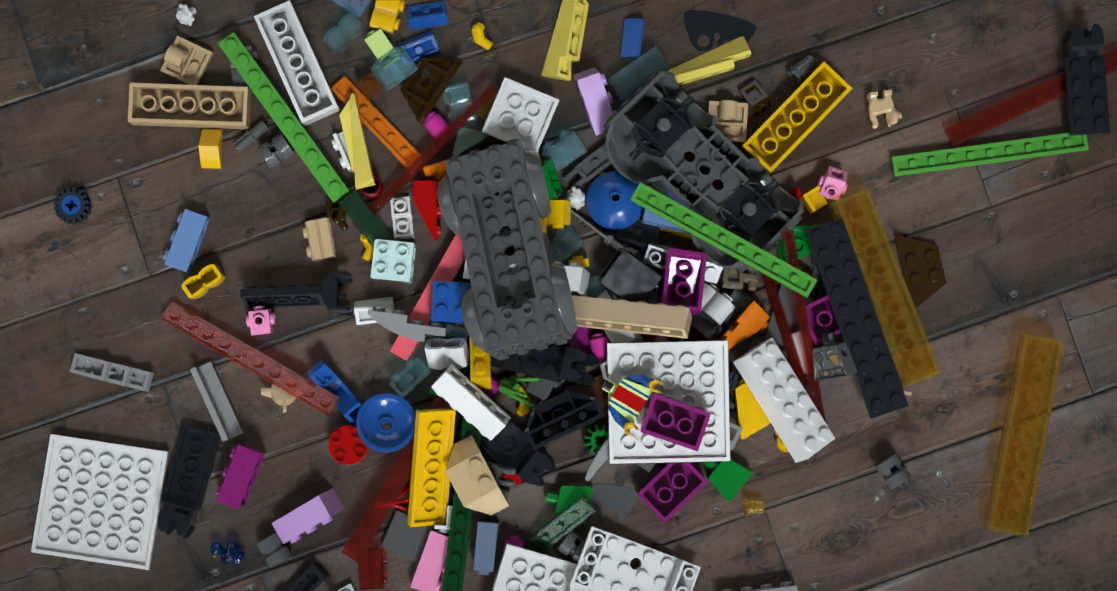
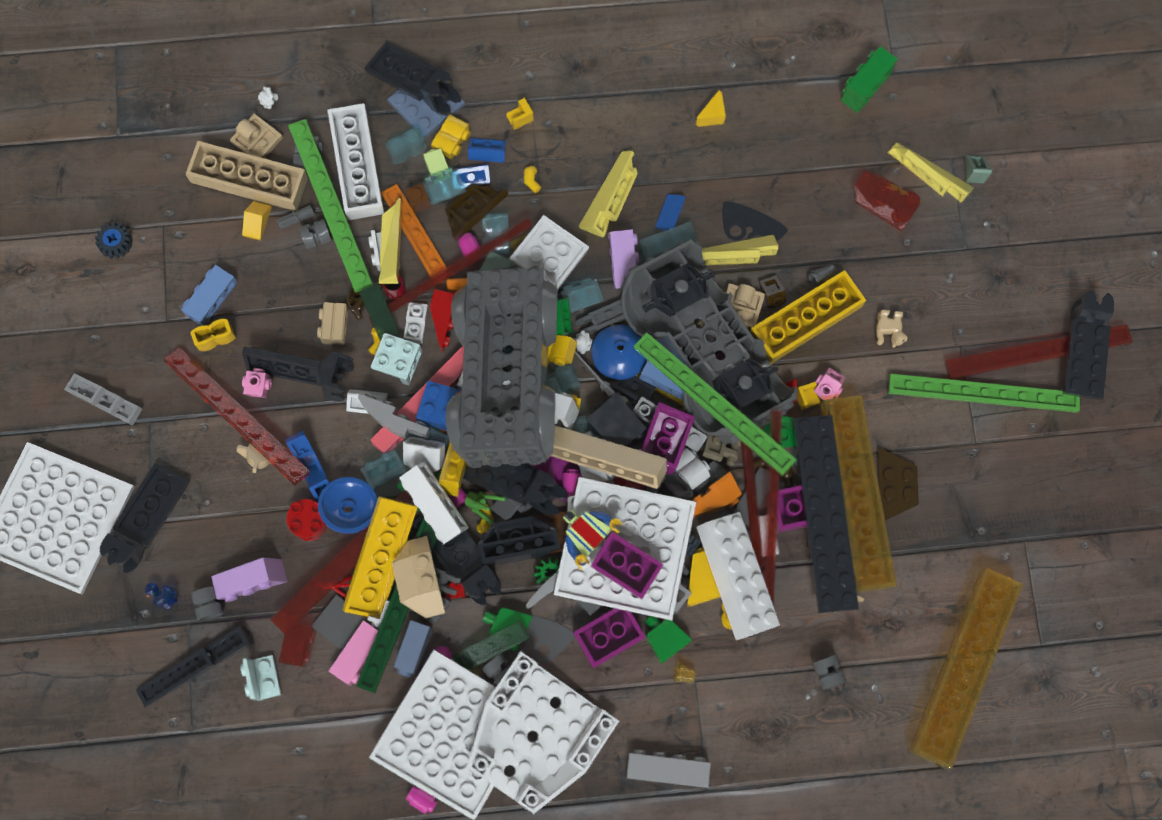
camera: 10 degrees right, 10 degrees down
(217, 401) = (193, 450): light grey fence -> none
(239, 476) = (194, 523): magenta brick -> none
(832, 359) = (793, 546): torso -> none

